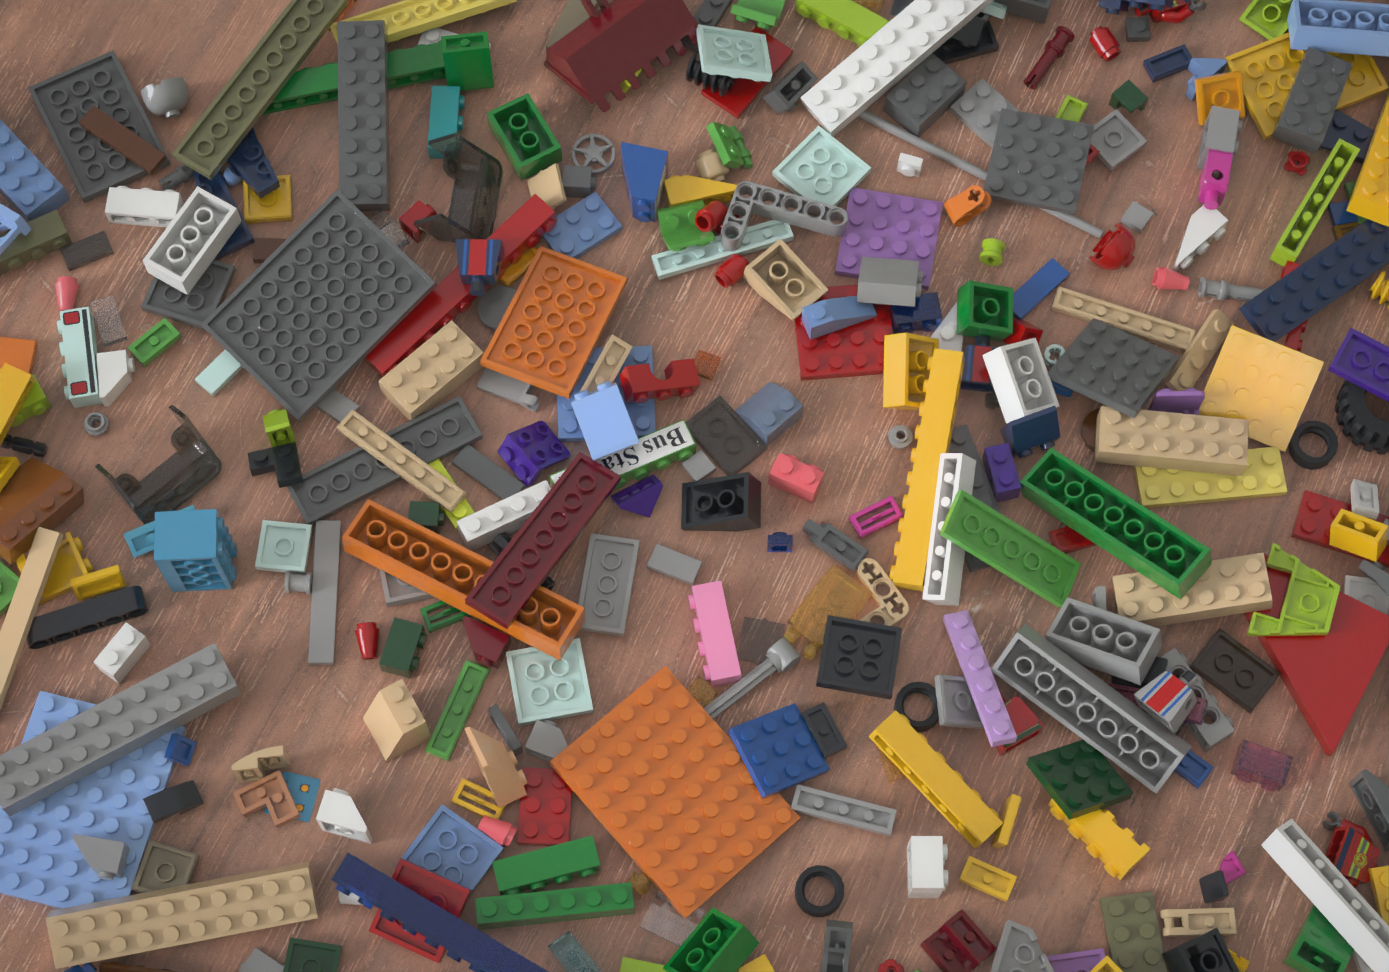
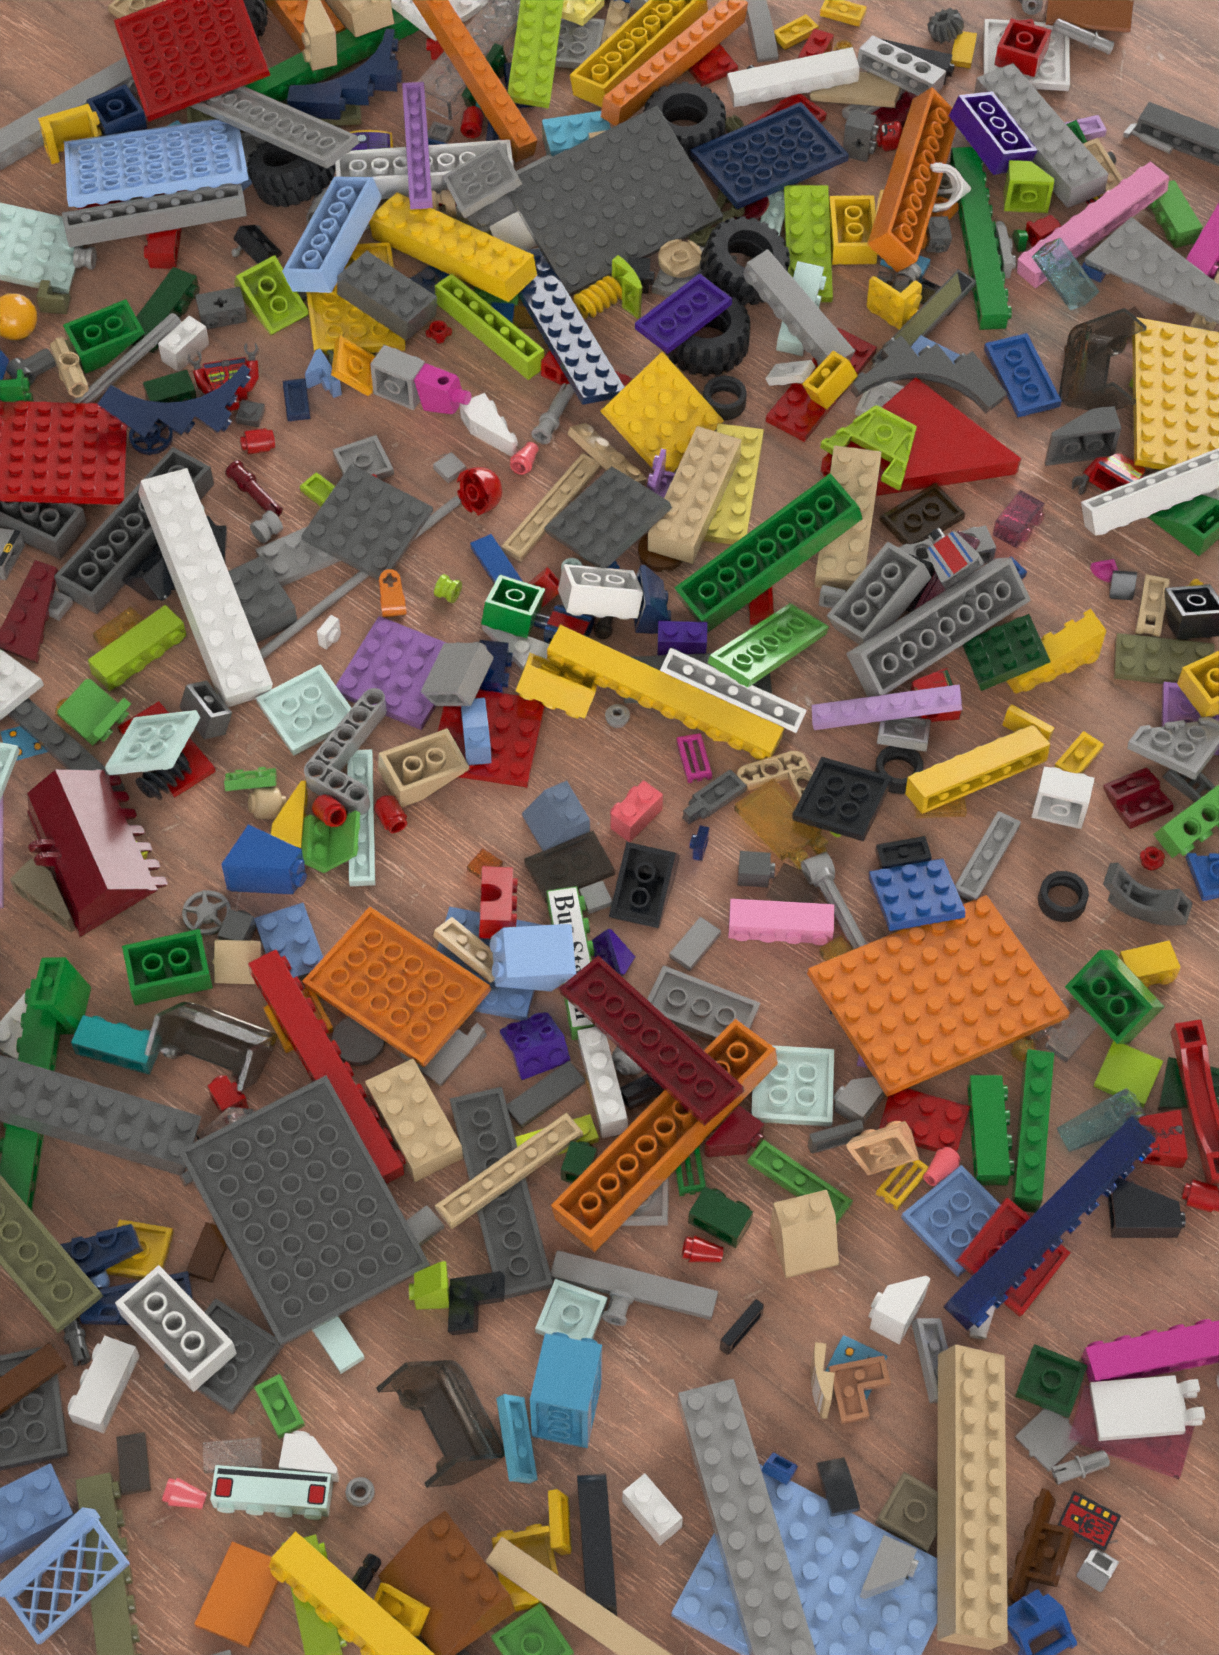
camera: 75 degrees left, 10 degrees down
(302, 689) = (741, 1327): none -> black tile
(321, 855) = (930, 1342): none -> light grey plate
(479, 262) = (313, 1032): torso -> none
(765, 598) = (755, 869): none -> dark grey brick
(1008, 79) = (267, 526): none -> light grey wheel
(1128, 96) = (324, 434): dark green panel -> none

